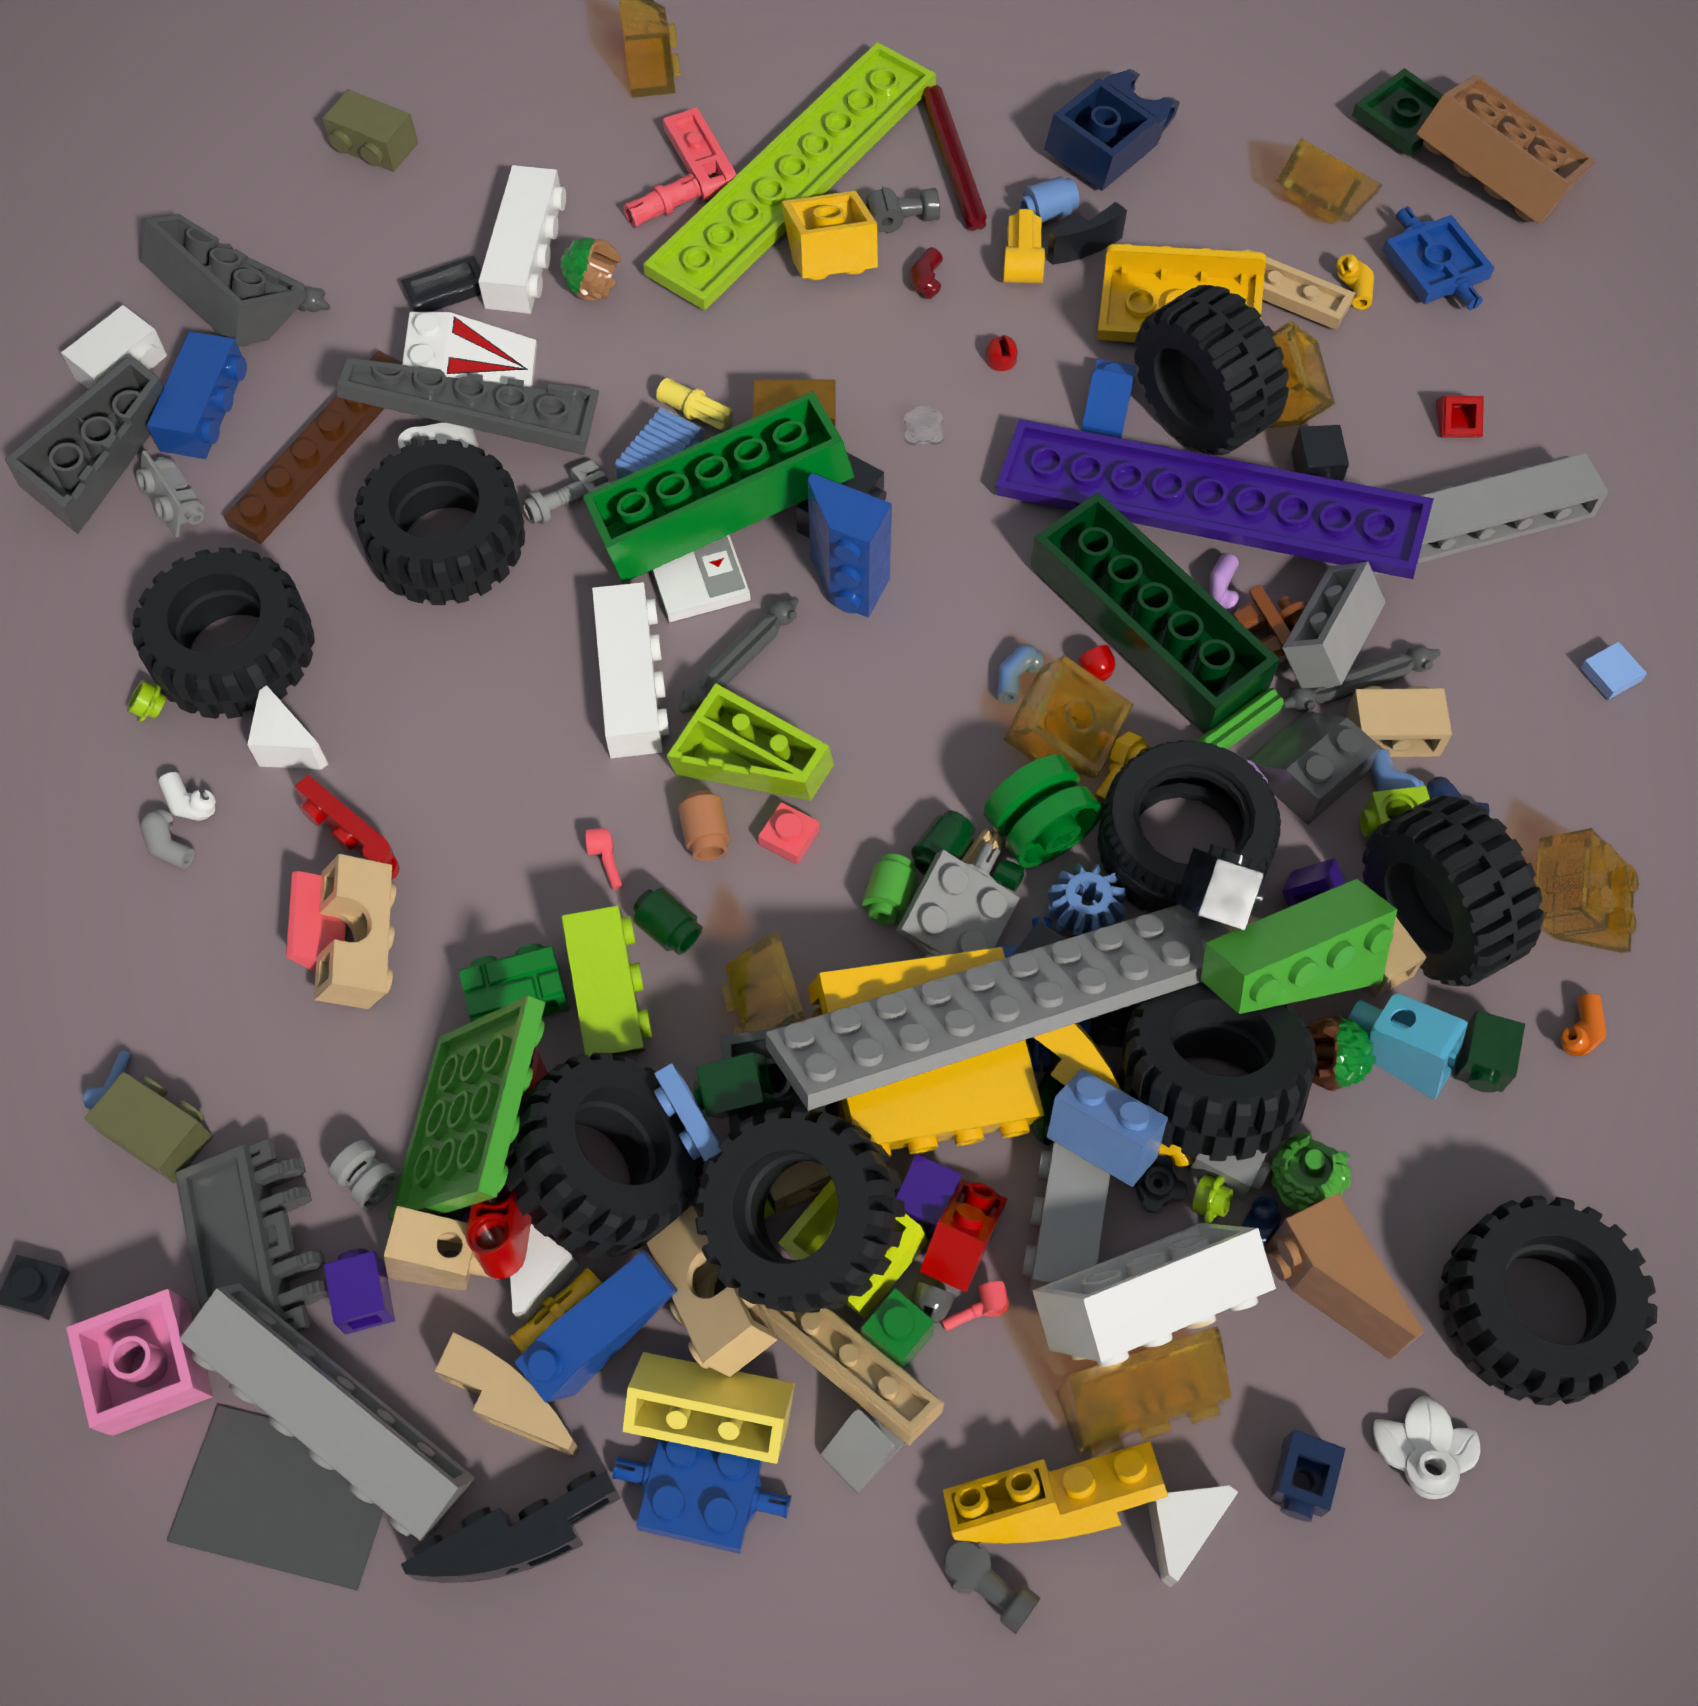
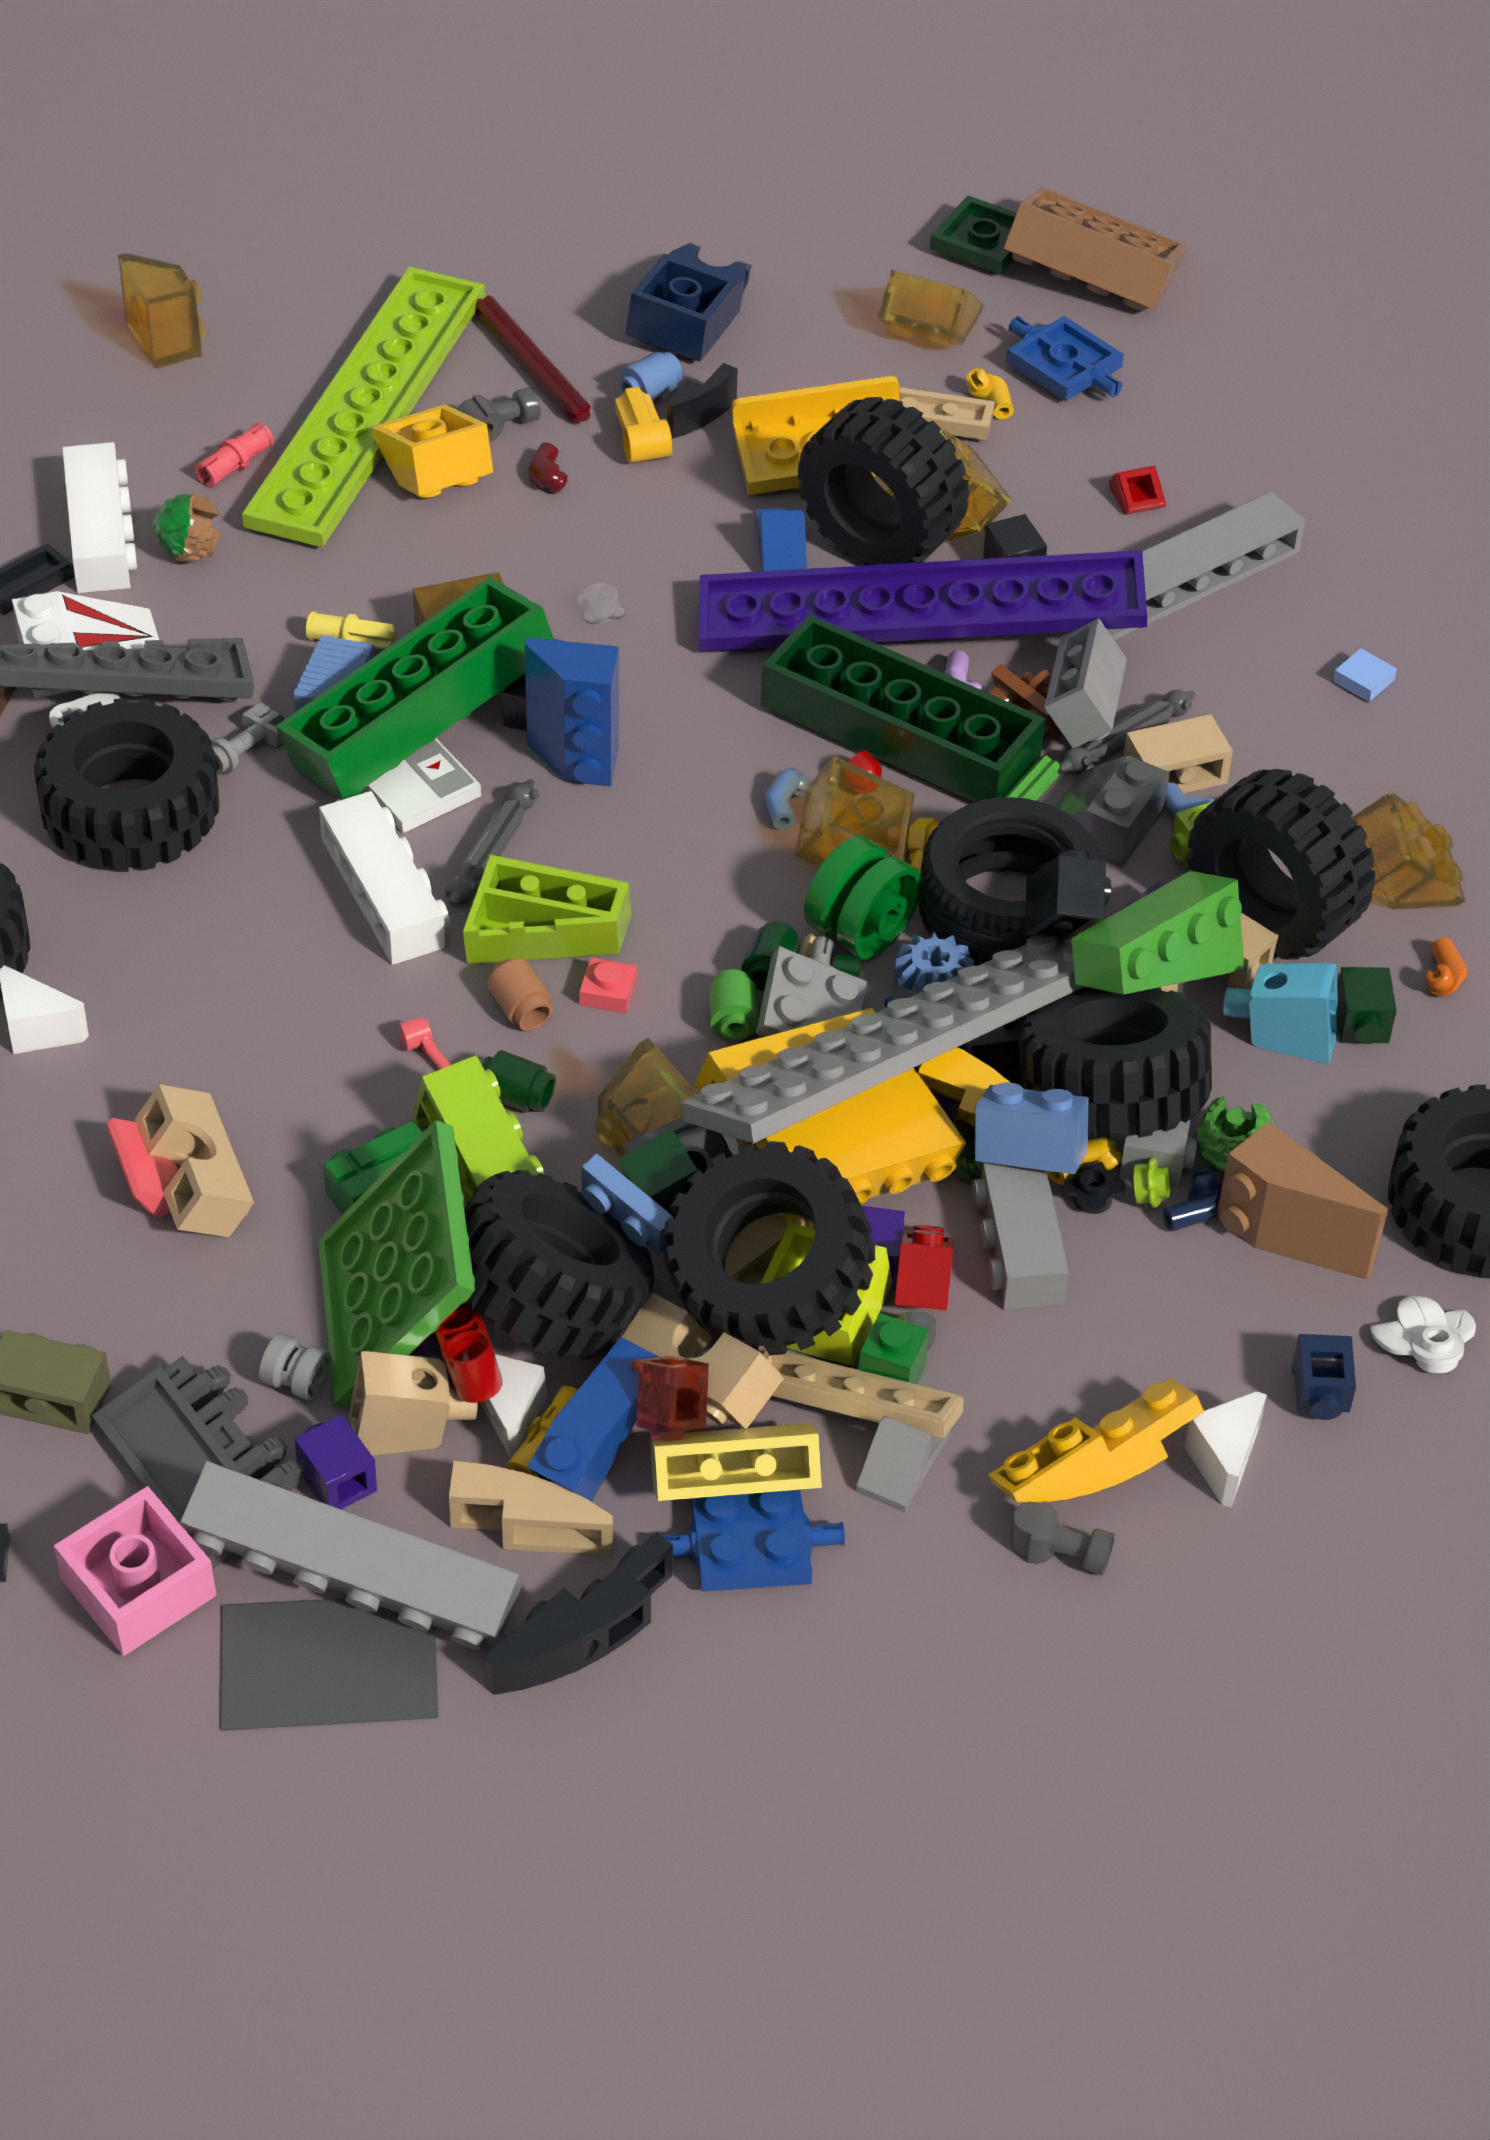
camera: 20 degrees left, 15 degrees down
(346, 826) = (131, 1070): red plate -> none
(661, 1334) = (671, 1395): none -> clear red brick
(699, 151) = (256, 401): coral plate -> none
(993, 1303) = (973, 1323): coral hand -> none
(994, 353) = (648, 527): red hinge -> none
(1146, 1392) = (1148, 1335): clear yellow slope -> none
(1154, 1292) = (1128, 1247): white brick -> none
(1341, 1052) = (1233, 1034): piece -> none

